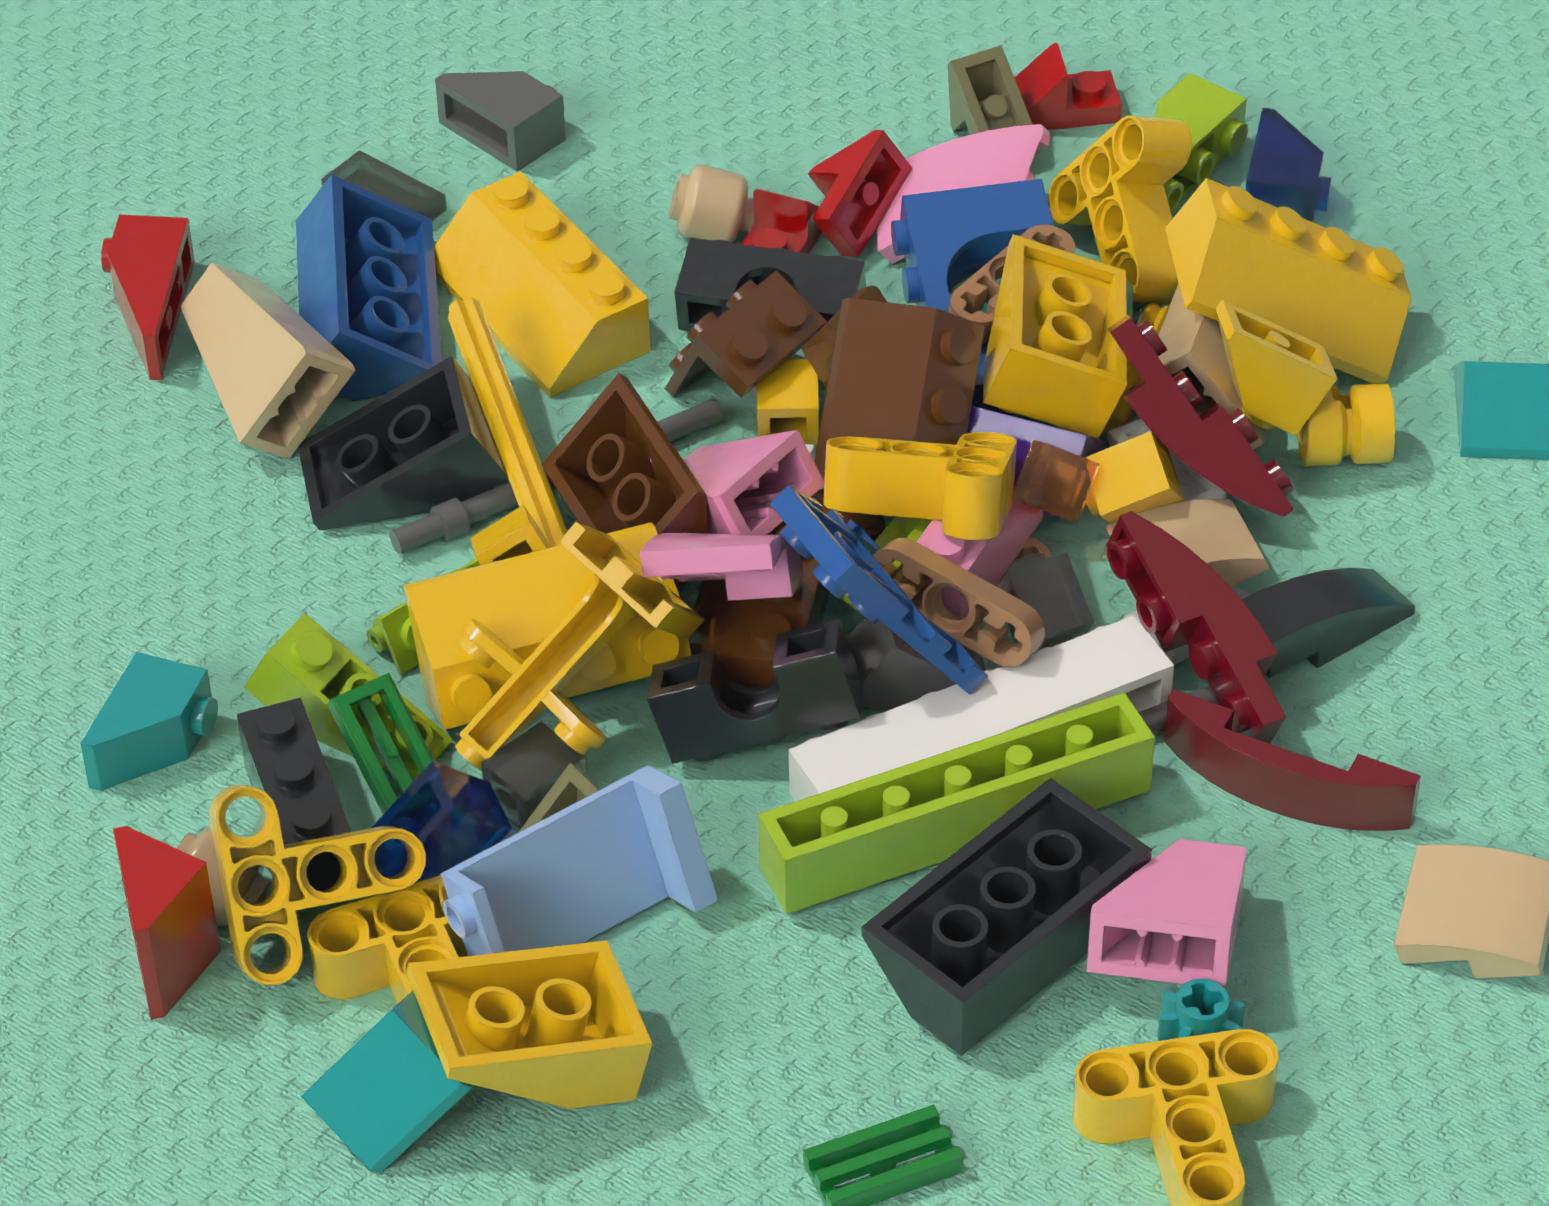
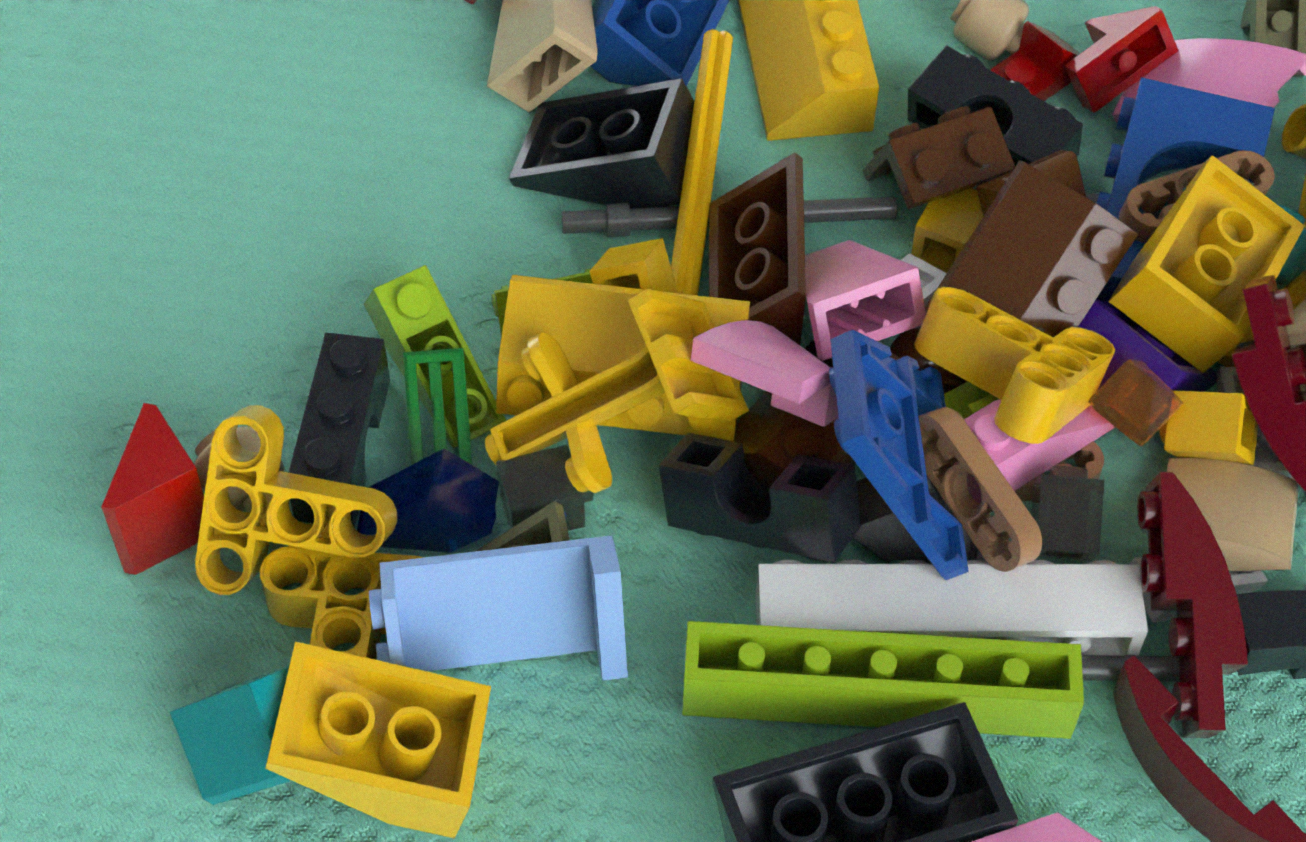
camera: 25 degrees right, 10 degrees up
(148, 721) = (270, 303): teal slope -> none

